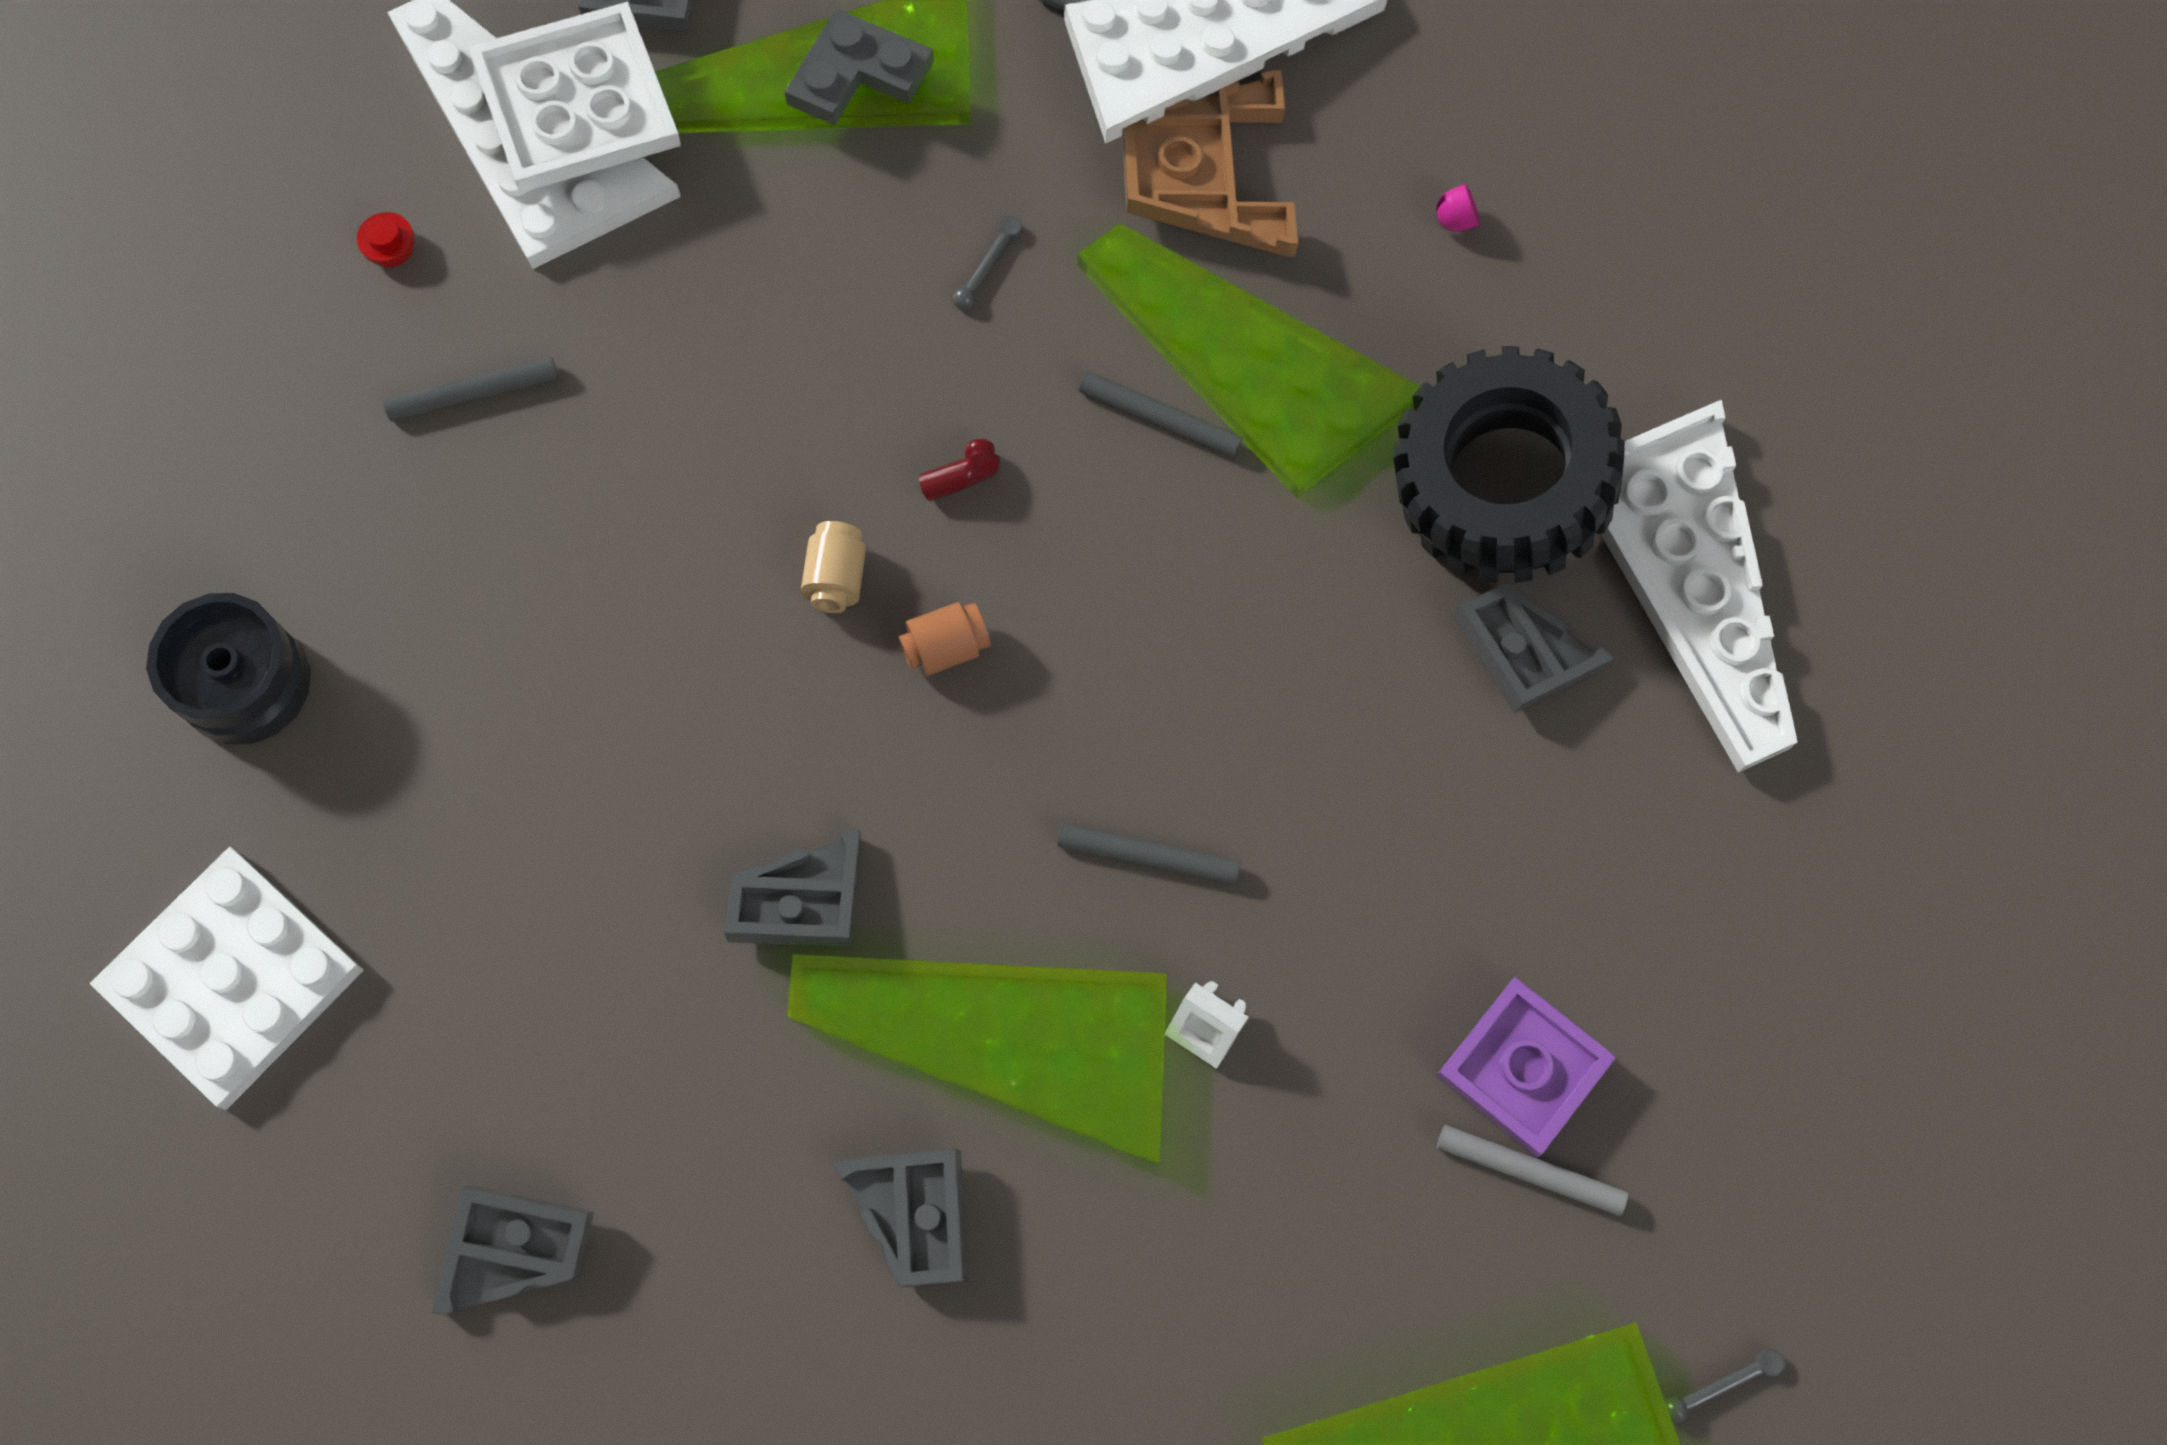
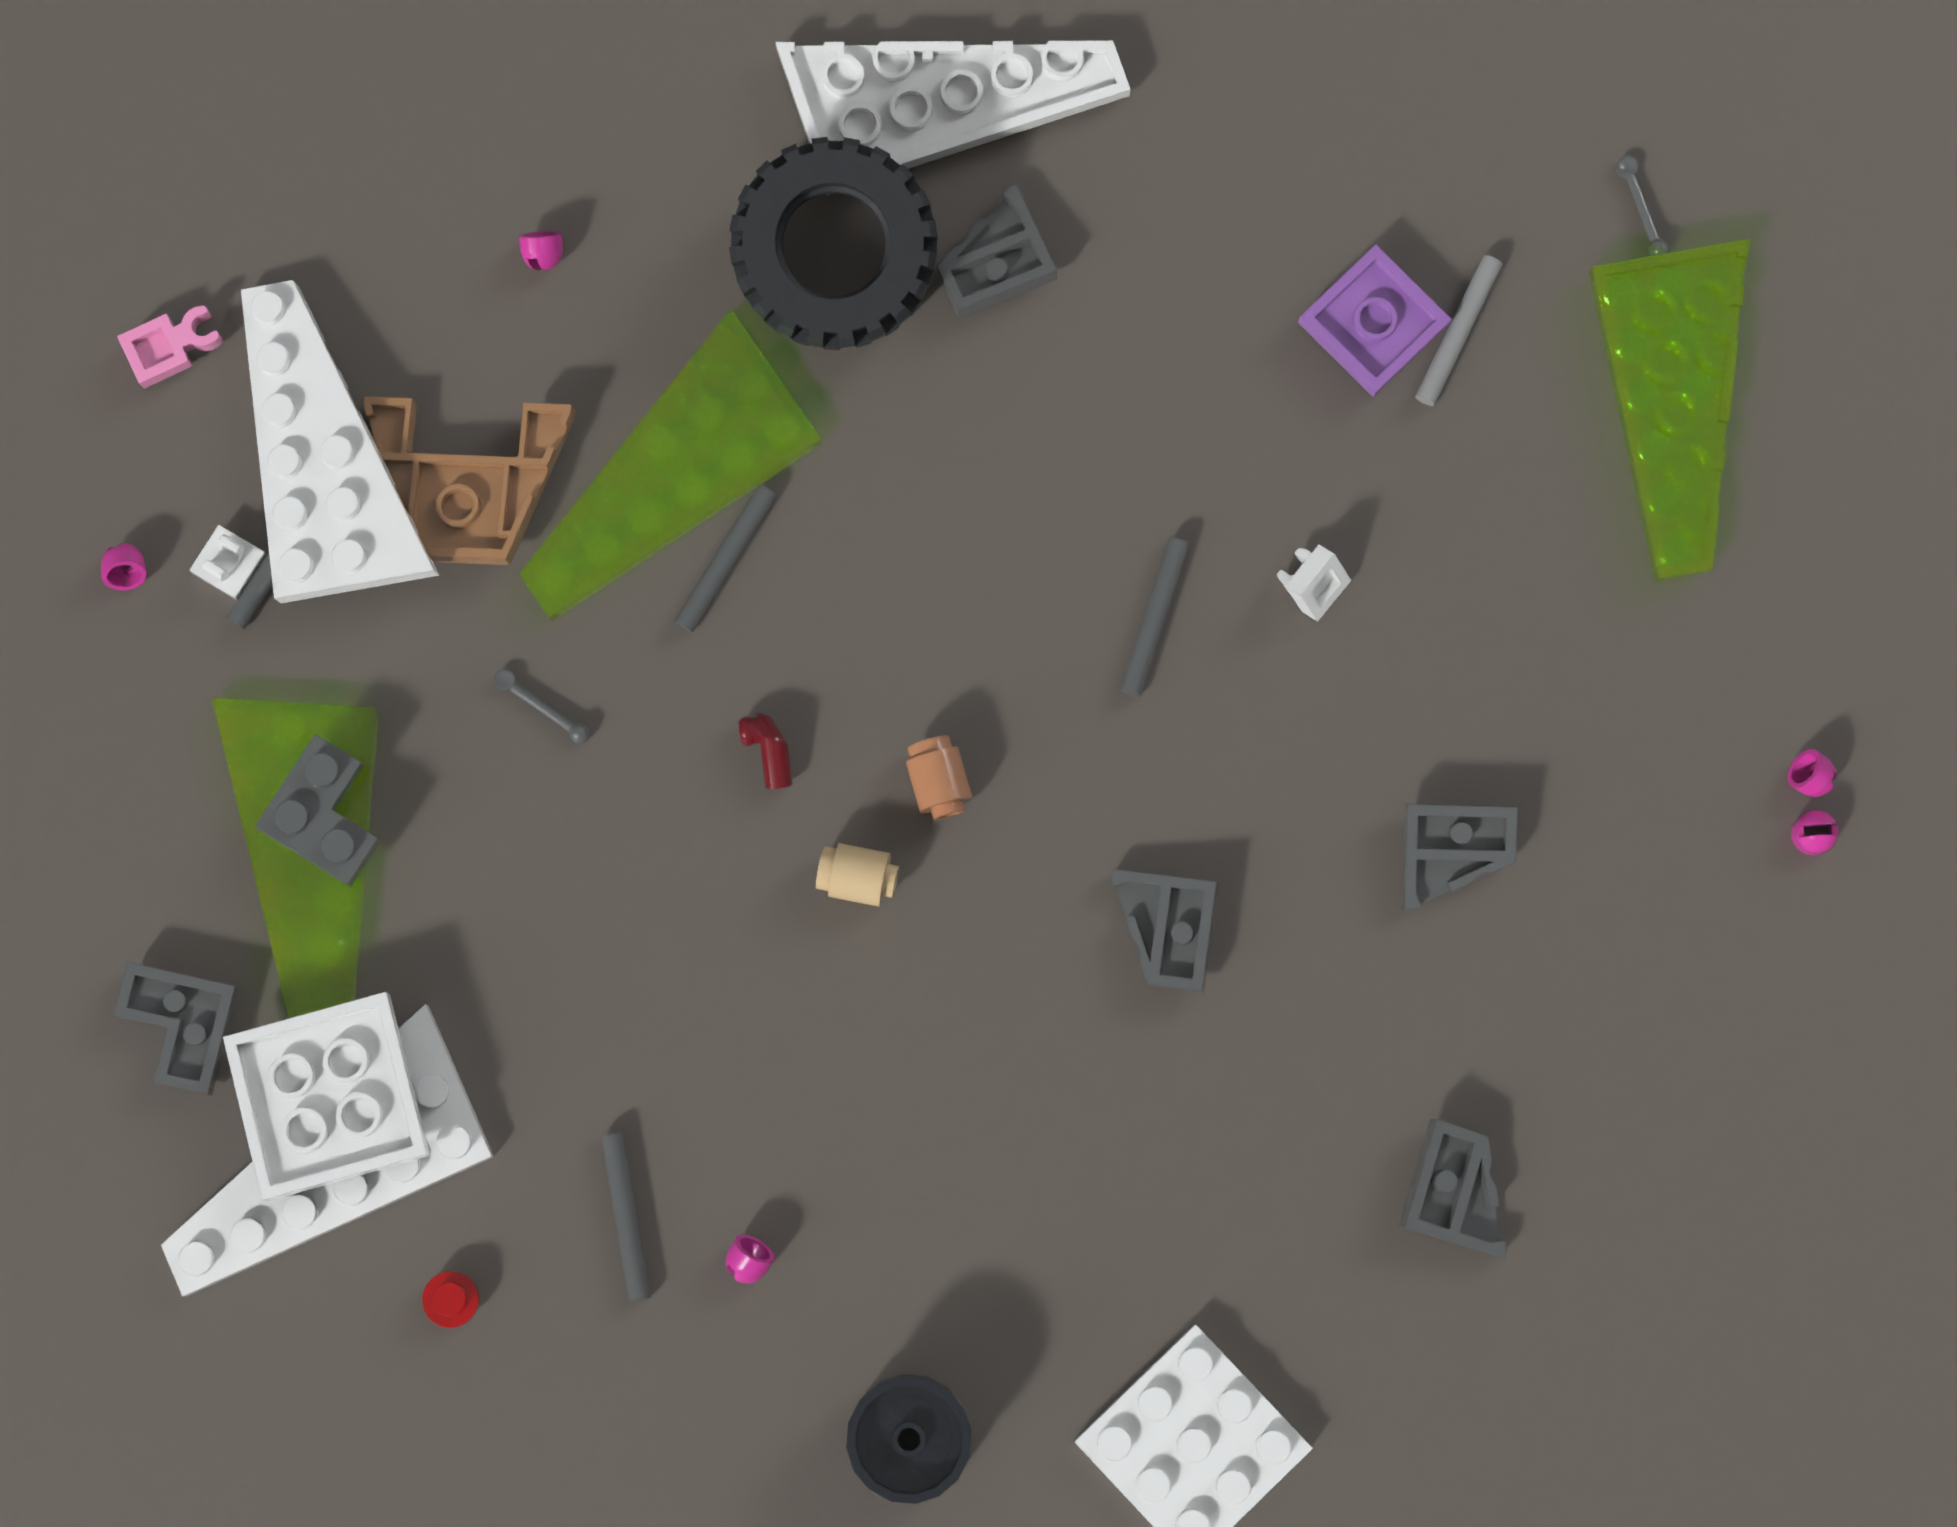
camera: 85 degrees left, 10 degrees up
(432, 498) = (748, 1259): none -> dark pink hinge
(1033, 1038) = (1314, 729): clear neon green wing -> none

